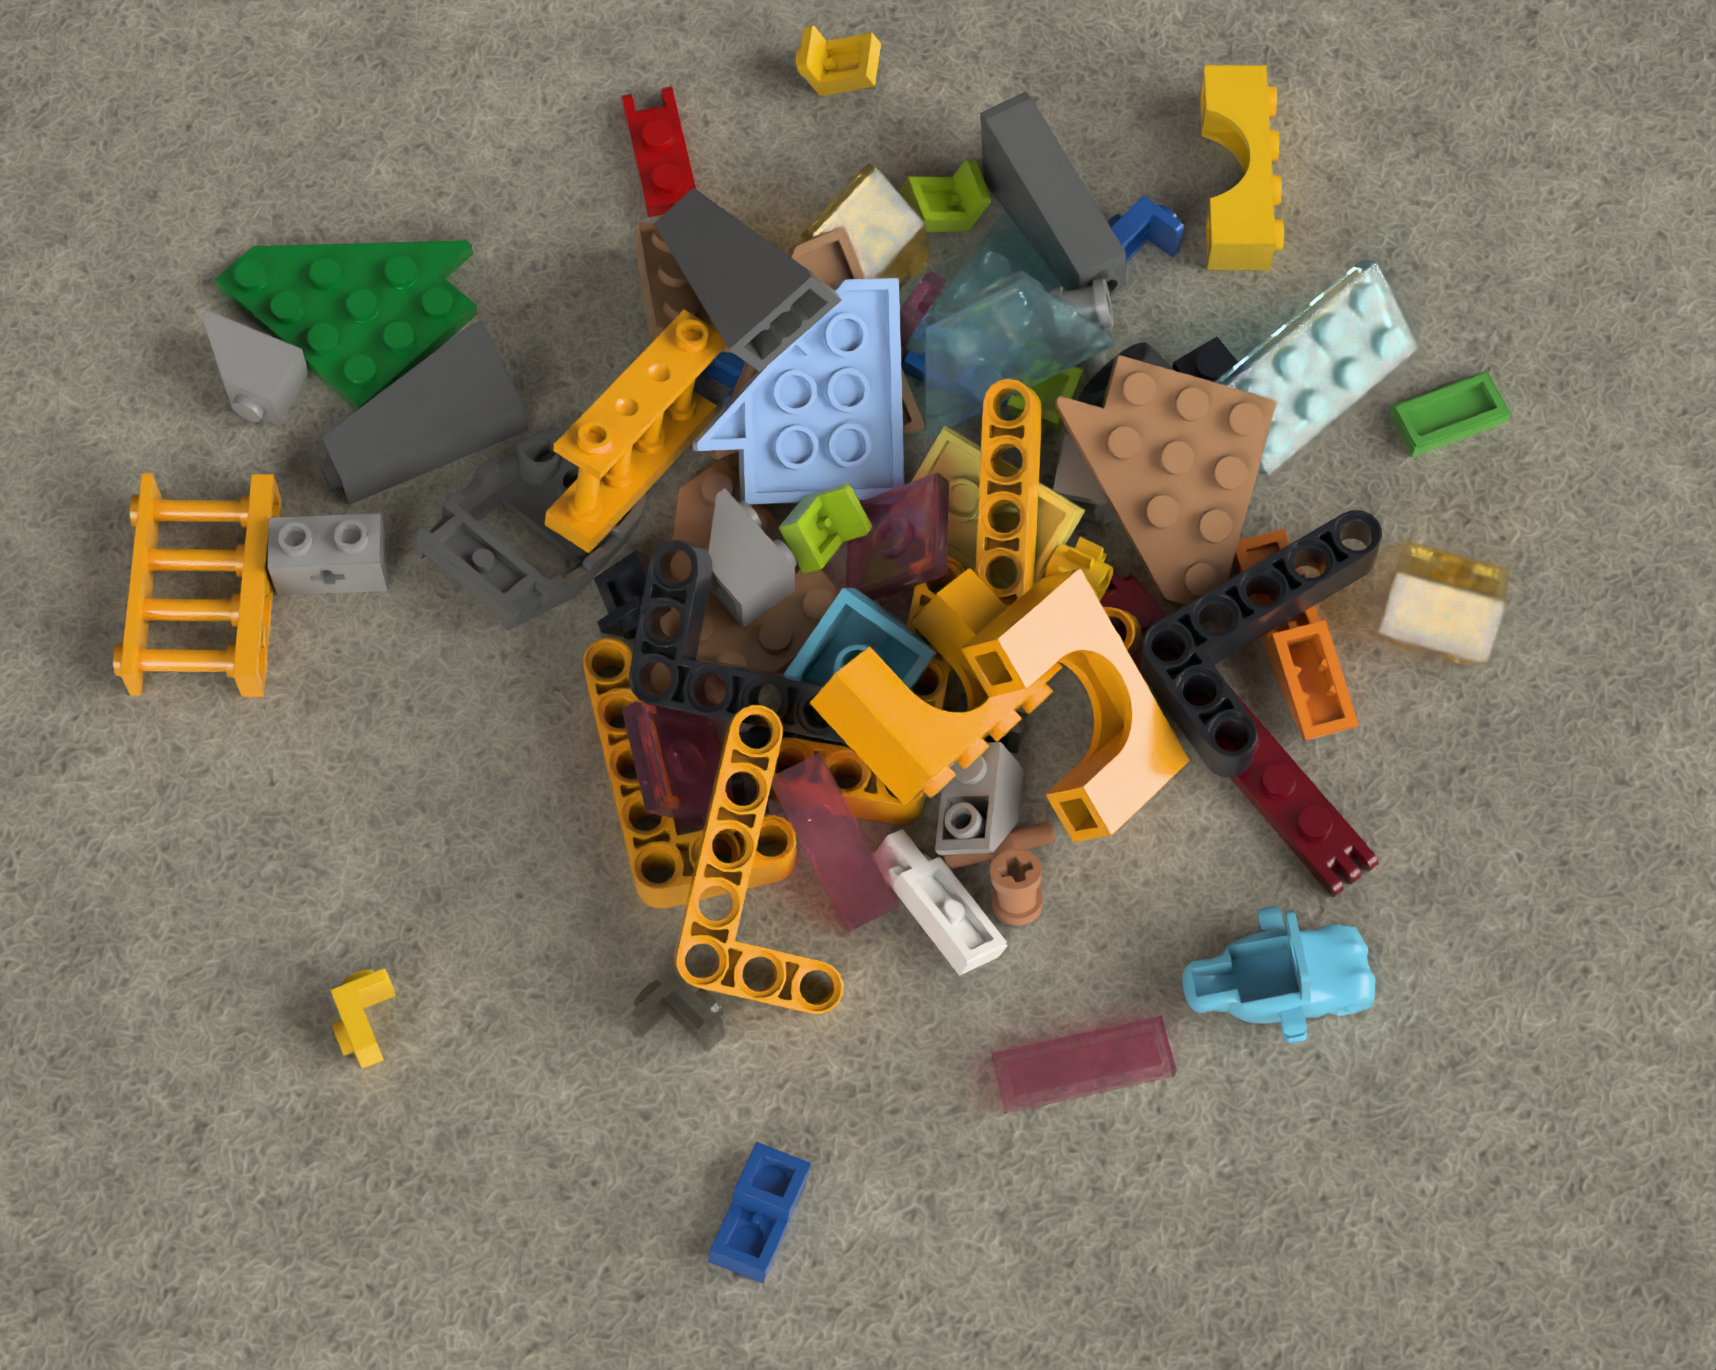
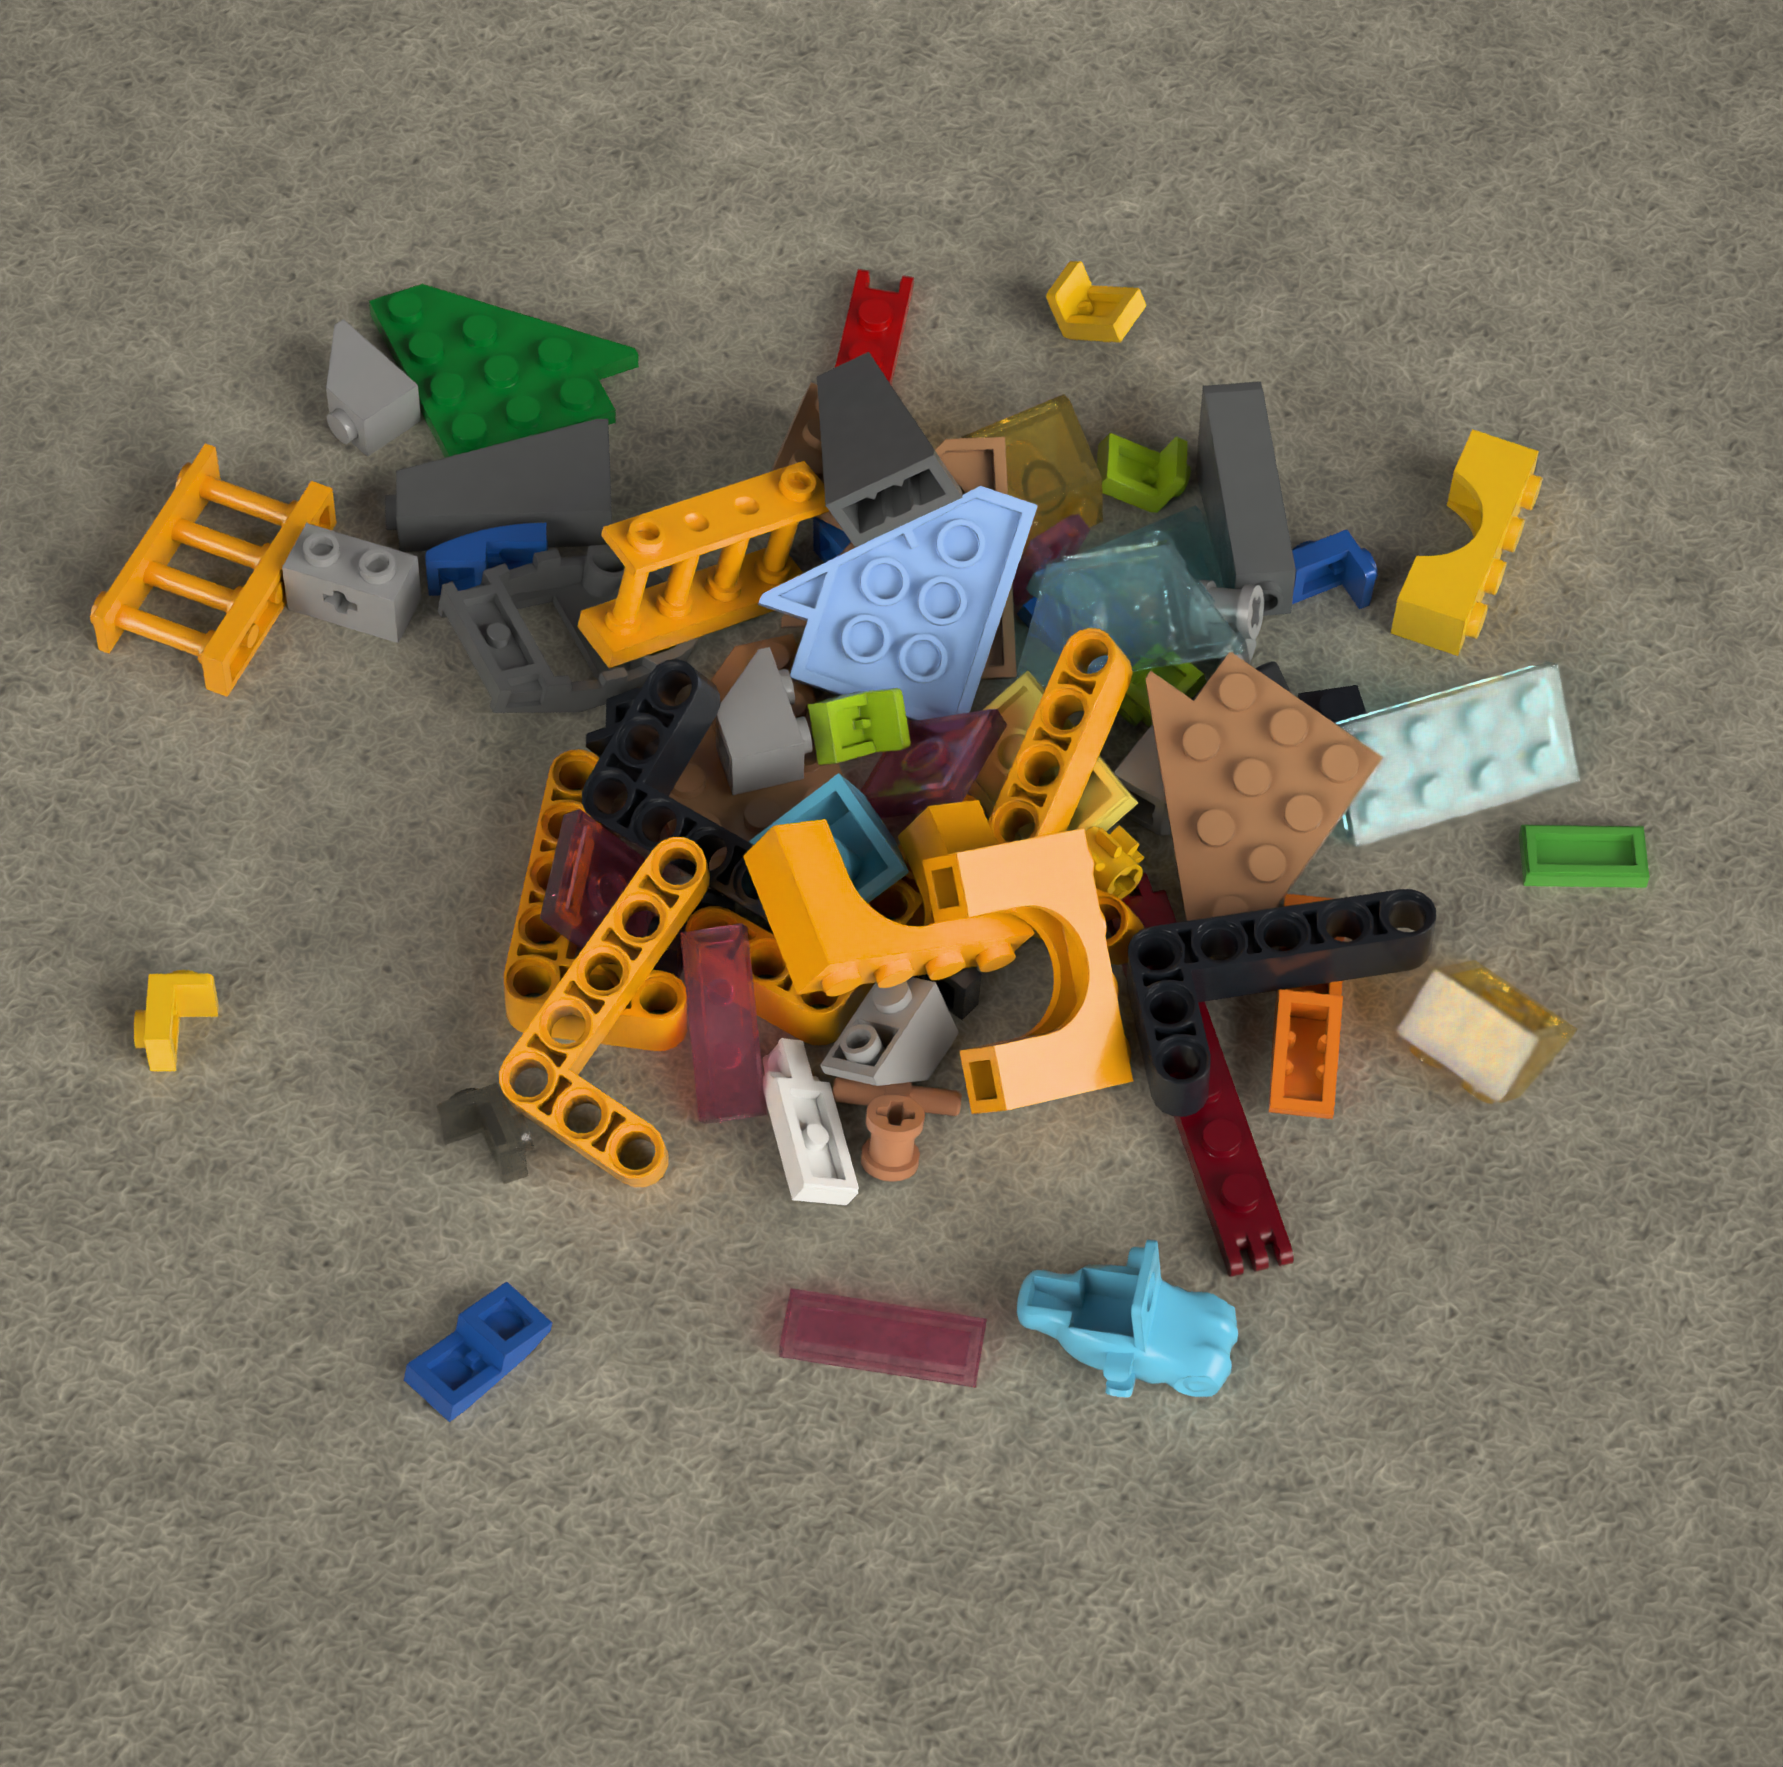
camera: 20 degrees right, 10 degrees down
(417, 497) = (469, 555): none -> blue slope

